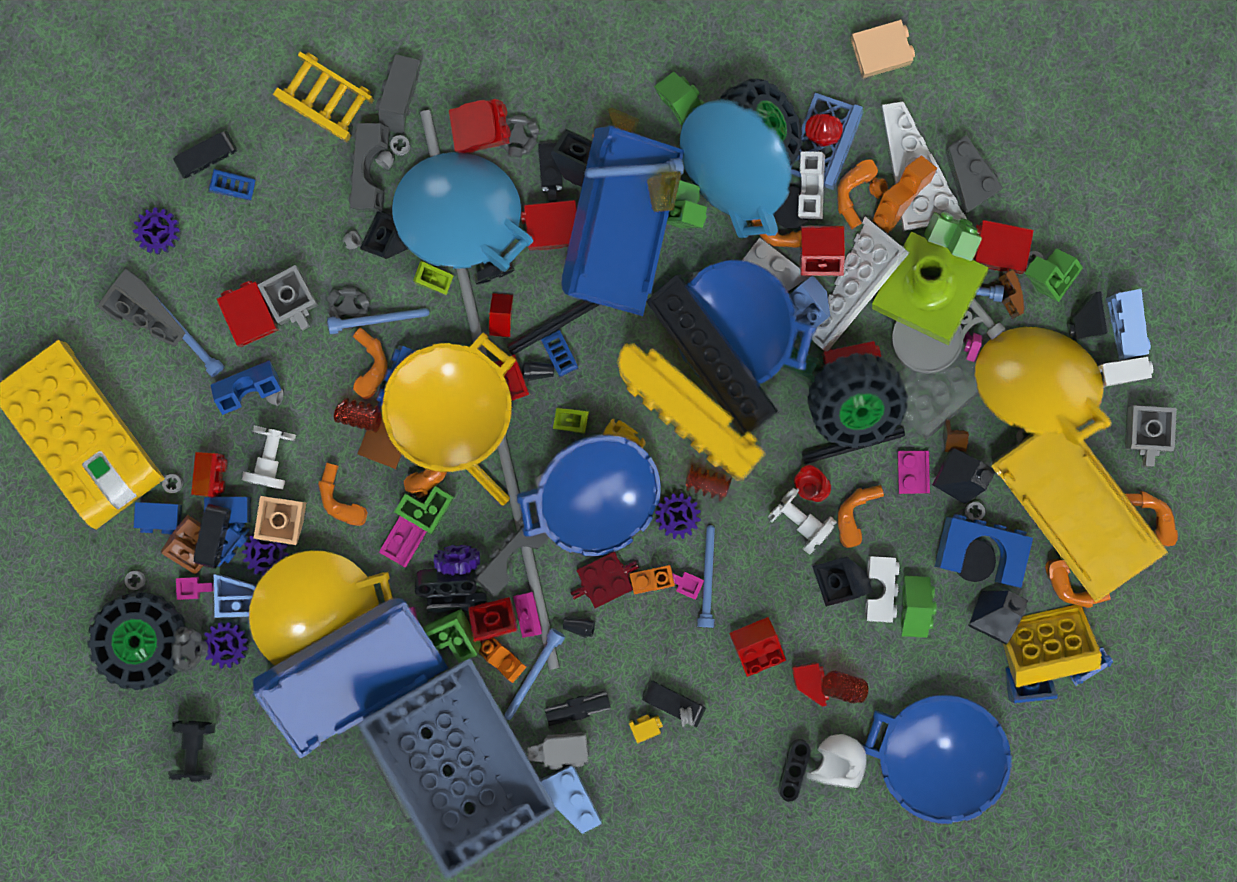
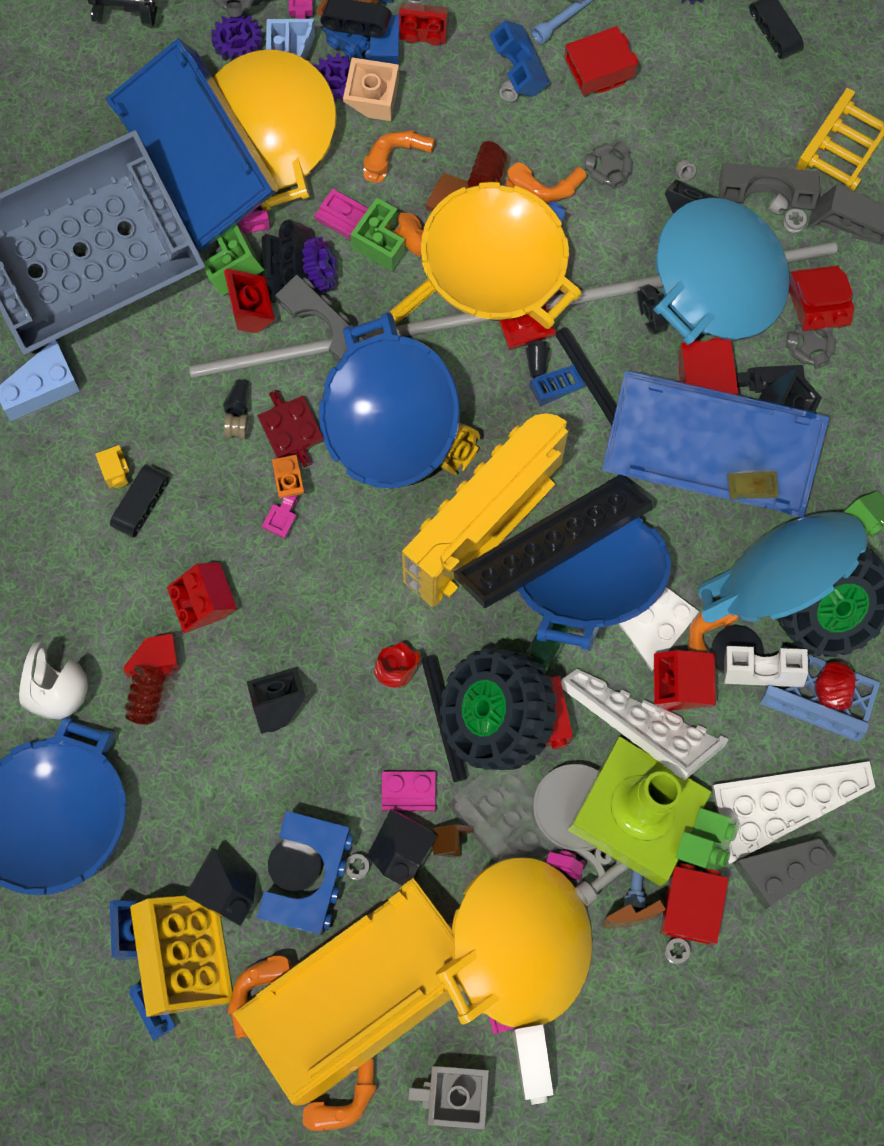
camera: 90 degrees right, 15 degrees down
(225, 175) = (747, 35): blue slope -> none
(267, 466) = (432, 75): white piece -> none
(289, 297) = (620, 102): light grey hinge -> none
(336, 325) = (589, 146): medium blue piece -> none
(432, 278) = (643, 248): lime slope -> none
(500, 315) = (602, 321): red slope -> none
(502, 659) = (207, 314): orange slope -> none
(527, 615) = (261, 341): dark pink plate -> none
(554, 639) = (223, 367): medium blue piece -> none
(561, 750) = (93, 373): light grey hinge -> none
(571, 420) = (477, 396): lime slope -> none
(577, 708) = (142, 394): black piece -> none
(605, 625) = (236, 426): none -> dark tan wheel
(623, 121) = (832, 457): clear yellow slope -> none
(671, 165) = (785, 497): medium blue piece -> none
(672, 524) = (367, 499): dark purple gear -> none
(686, 210) = (735, 518): bright green brick -> none
(686, 716) = (122, 505): light grey bush -> none
(706, 618) = (239, 539): medium blue piece -> none
(707, 483) = (400, 536): clear red piece -> none
(790, 780) = (40, 628): black beam -> none
(808, 525) = (345, 655): white piece -> none
(810, 303) = (616, 661): medium blue slope -> none
(848, 531) = (333, 709): orange piece -> none
(862, 172) = (783, 736): orange piece -> none
(878, 187) = (765, 755): orange plate -> none
(882, 608) = (286, 750): white arch -> none
(899, 197) = (752, 773): orange arch -> none
(917, 606) = (239, 785): bright green brick -> none
(1054, 275) = (657, 974): bright green brick -> none
(1088, 319) = (601, 1015): black slope -> none
(1129, 324) = (596, 1073): light blue wedge -> none

